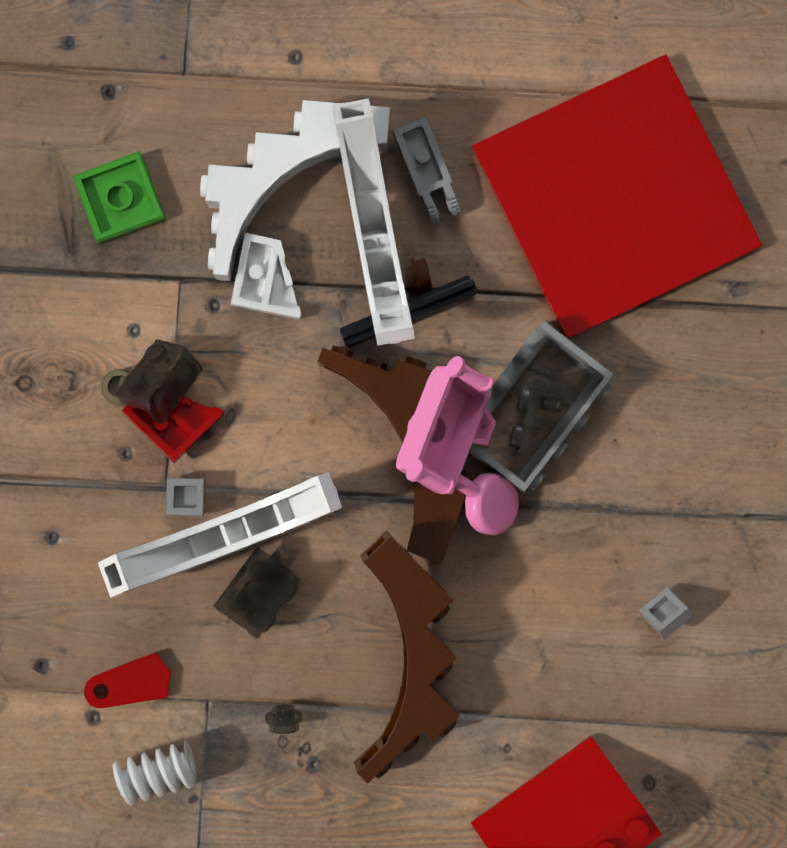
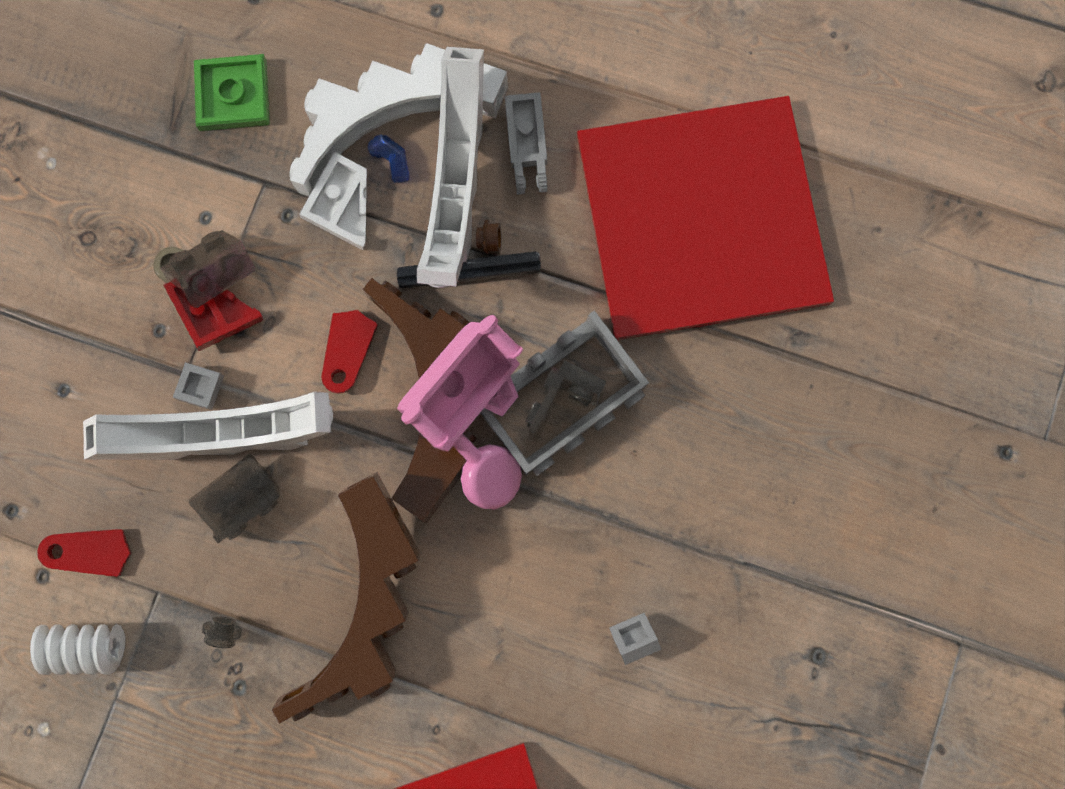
camera: 25 degrees right, 5 degrees down
(299, 215) = (387, 148): none -> clear blue arm
(314, 420) = (346, 348): none -> red piece

